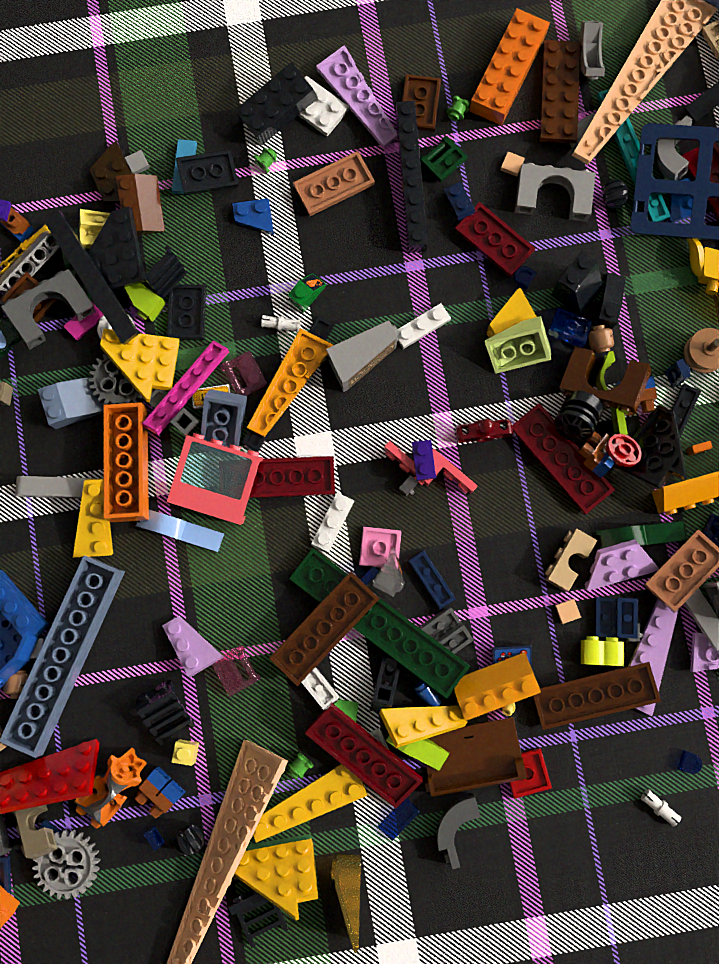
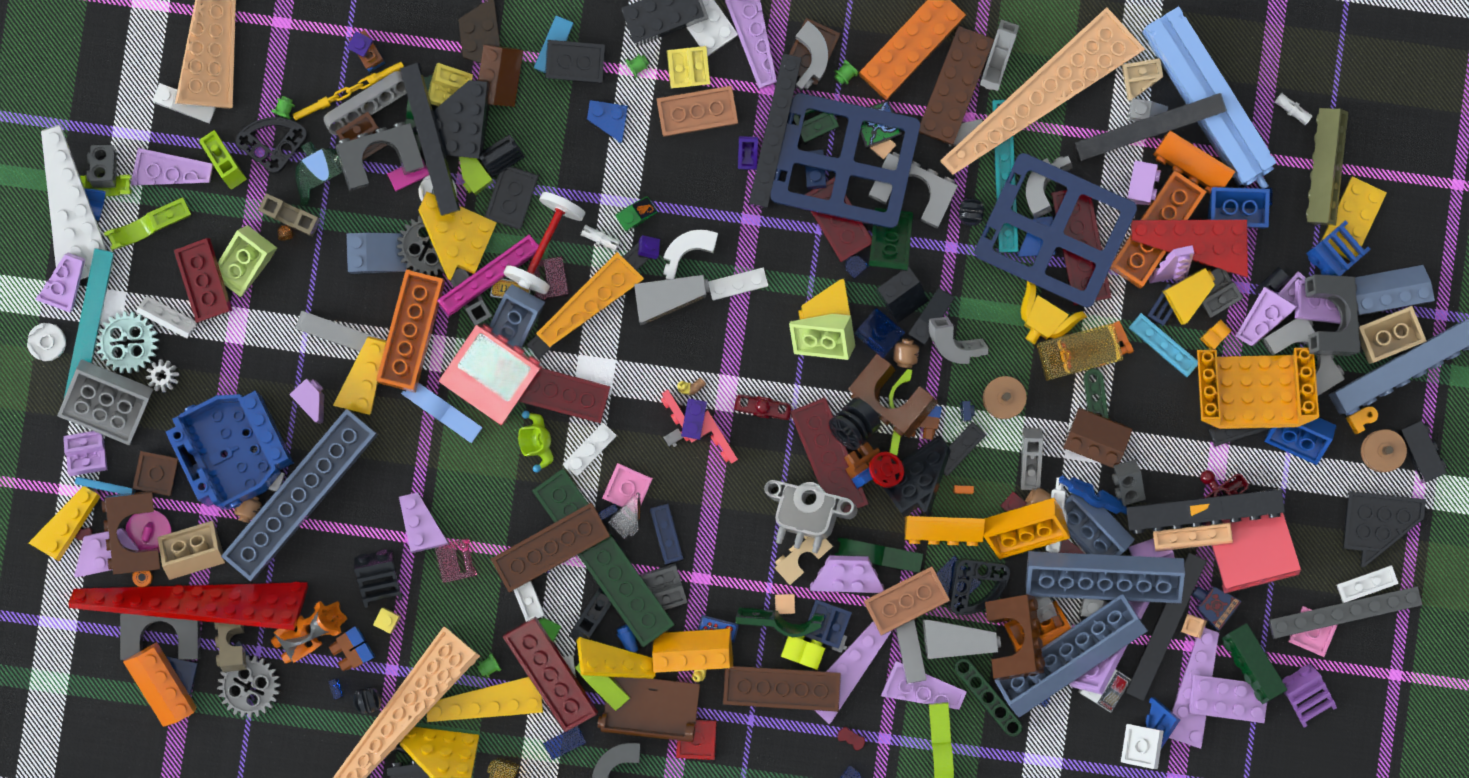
camera: 15 degrees right, 5 degrees up
(47, 557) = (310, 399): none -> lavender slope
(137, 162) = (508, 26): light grey tile -> none
(234, 302) = (561, 207): none -> white piece
(278, 529) = (535, 440): none -> lime piece
(313, 147) = (688, 67): none -> light yellow slope
(328, 316) = (649, 247): none -> dark purple plate
(367, 298) = (689, 241): none -> white arch
(392, 203) = (747, 152): none -> dark purple slope
(409, 435) = (690, 388): none -> arm
(424, 91) = (817, 46): none -> light grey arch
(487, 185) = (845, 164): none -> dark blue window
(501, 145) = (875, 134): none -> tile
(553, 236) = (892, 245): none -> dark green plate
(561, 629) = (772, 618): none -> dark green piece
(563, 522) = (807, 520): none -> light grey piece
(634, 312) = (956, 351): none -> light grey arch
(673, 721) = (847, 735): none -> dark red piece

